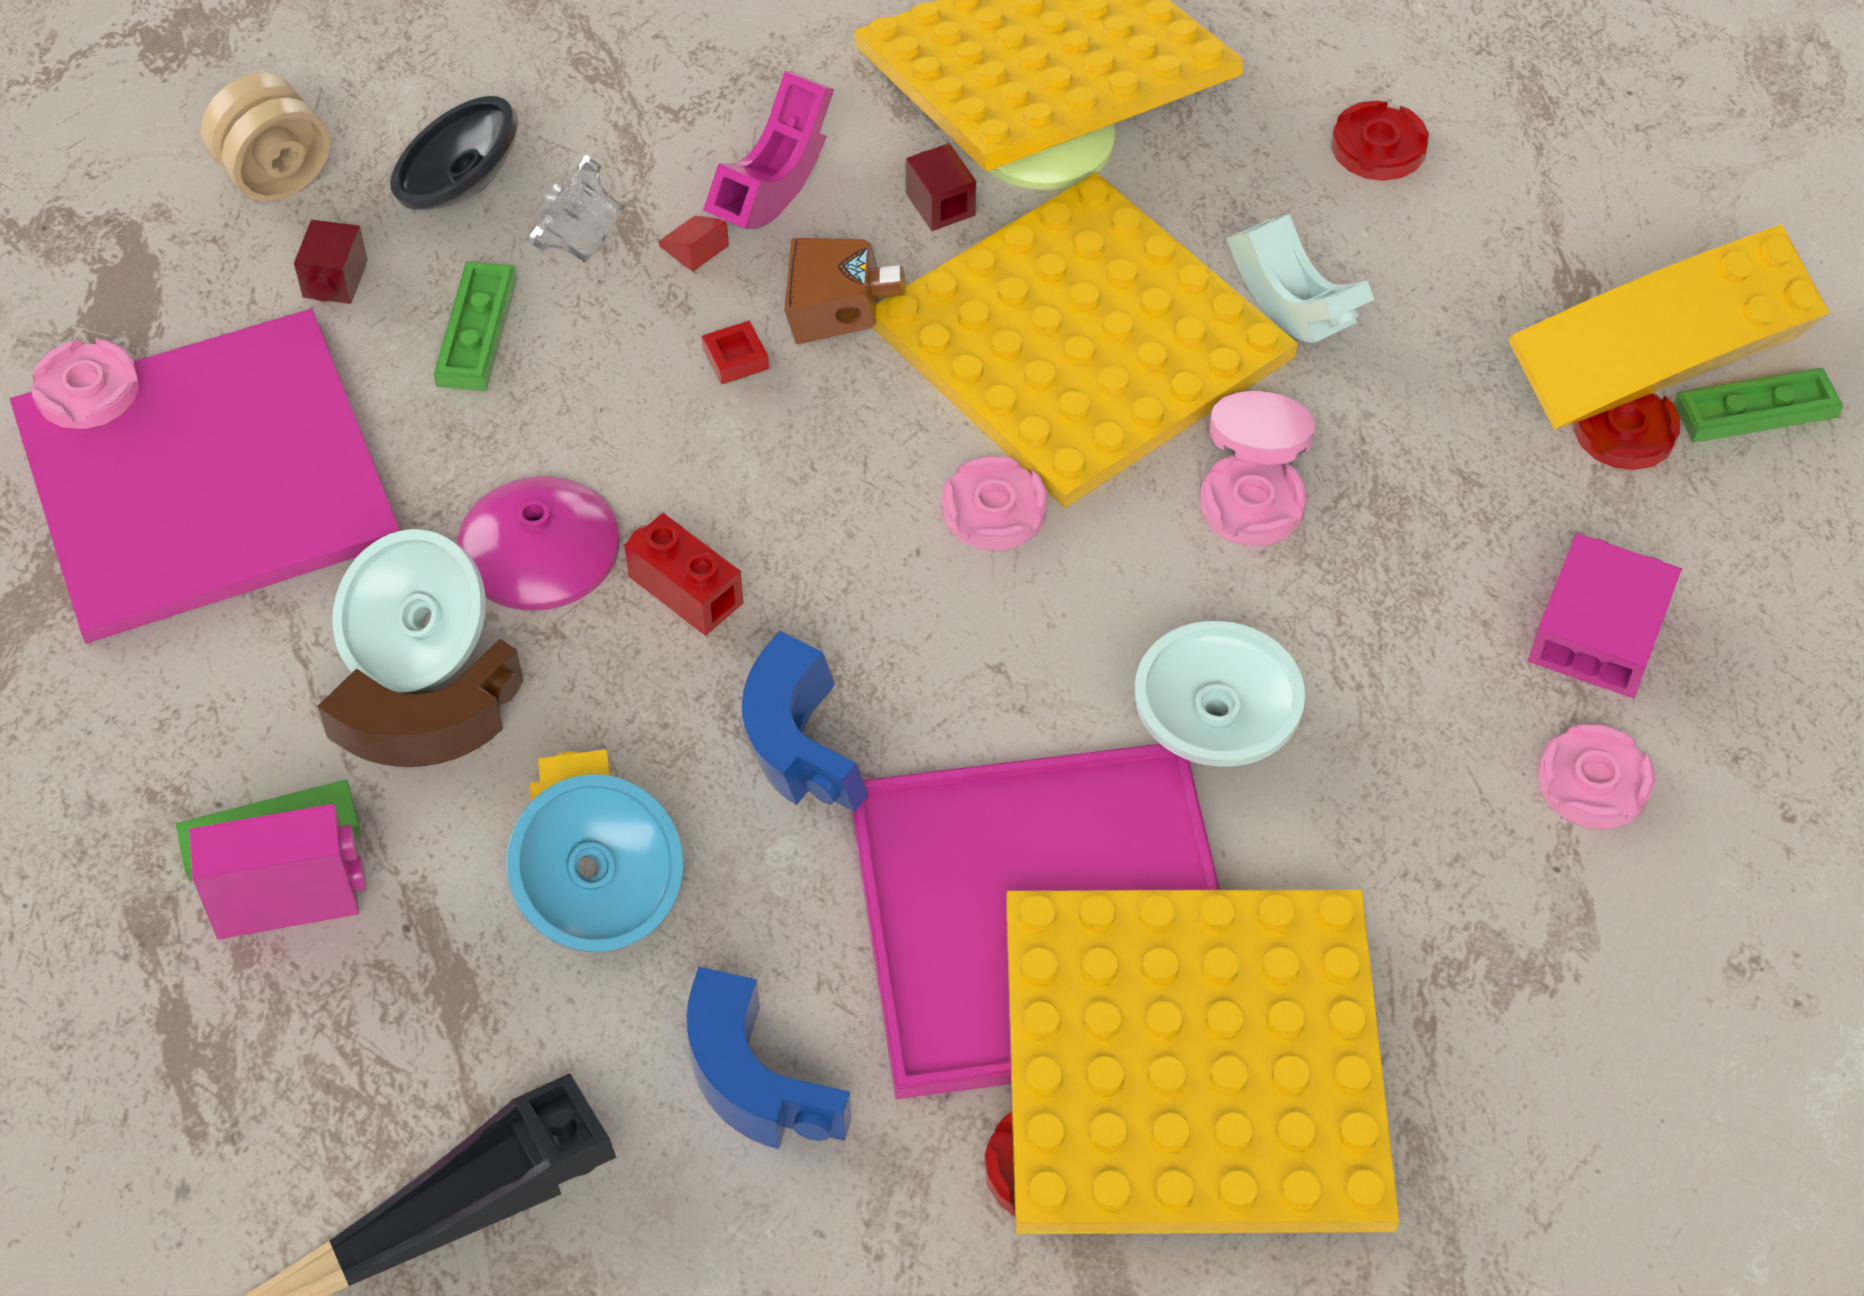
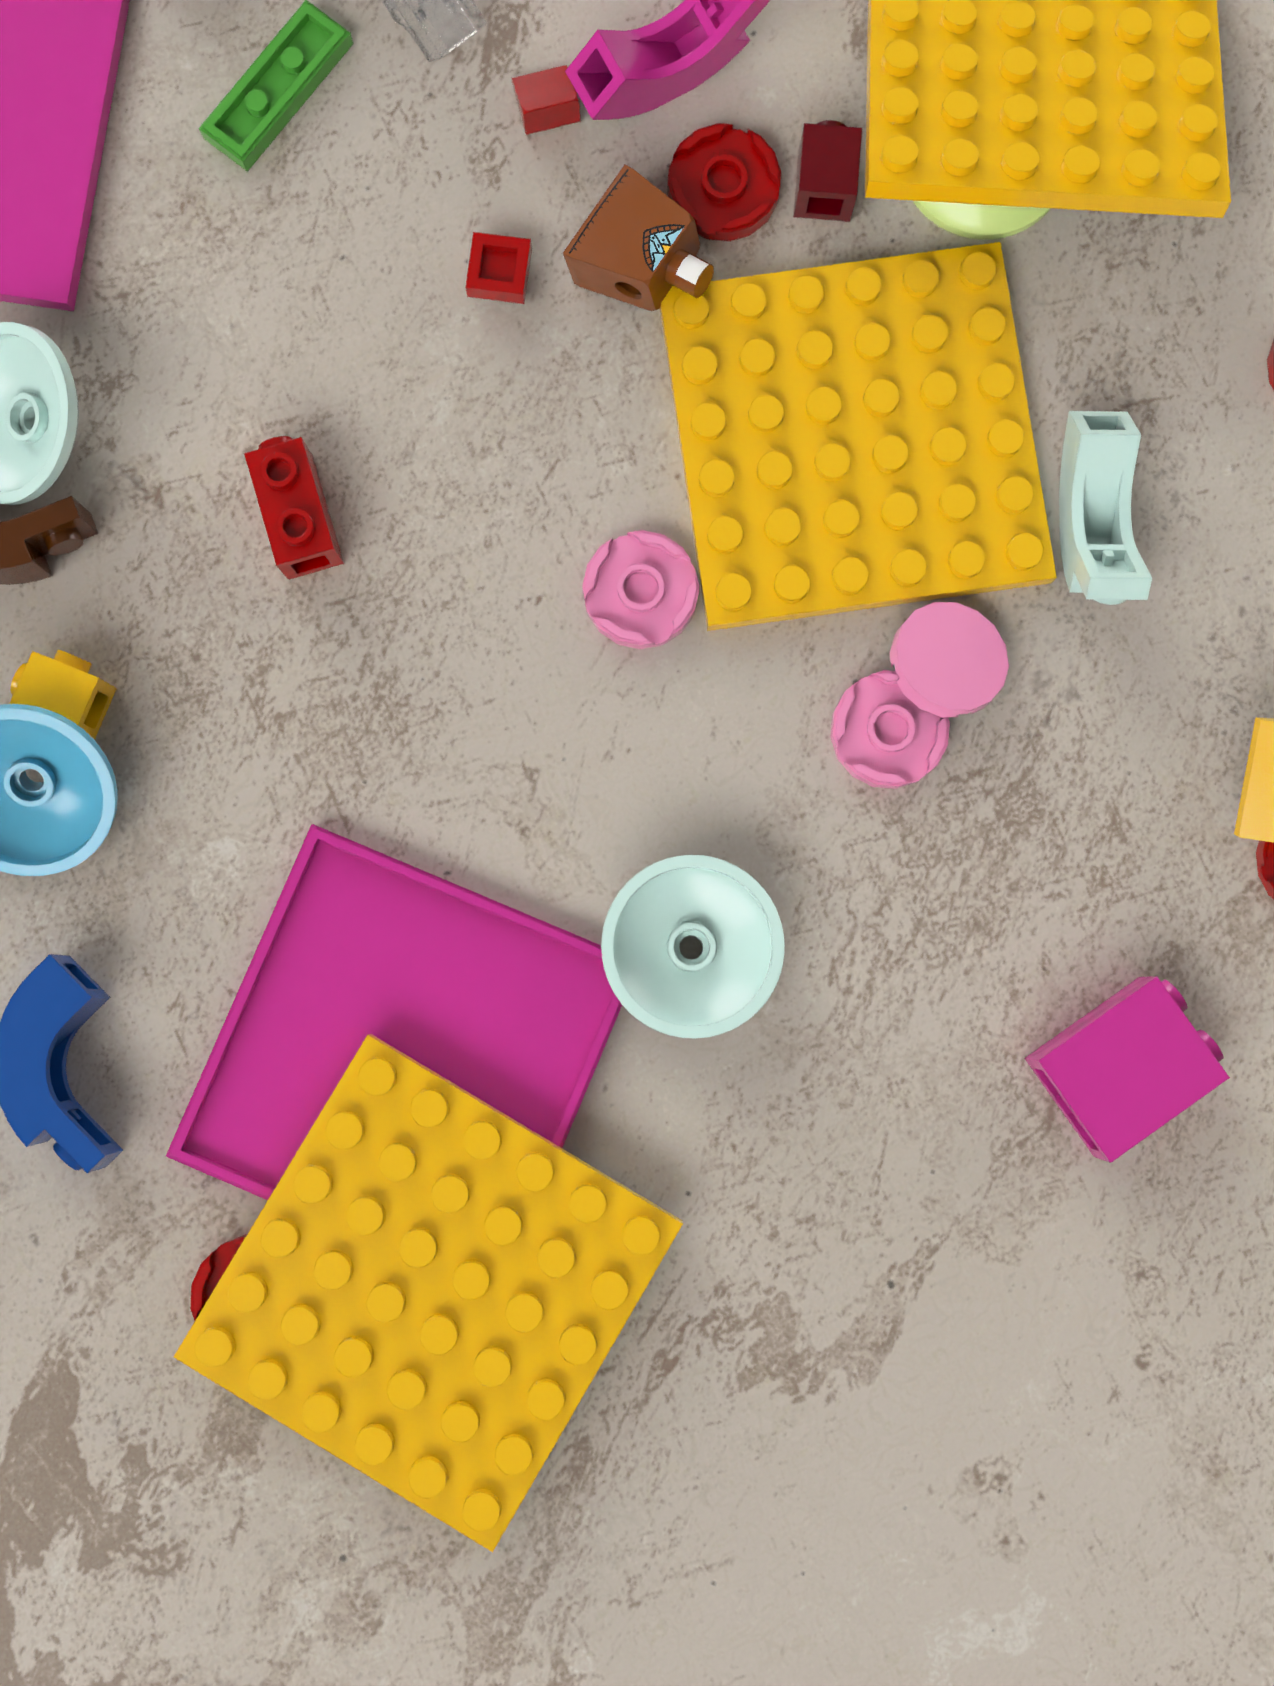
camera: 30 degrees right, 30 degrees up
(542, 560) = (215, 409): dark pink dish -> none
(776, 704) = (274, 730): blue arch -> none
(871, 217) = (725, 181): none -> red tile
(1595, 776) = (993, 1219): bright pink tile -> none

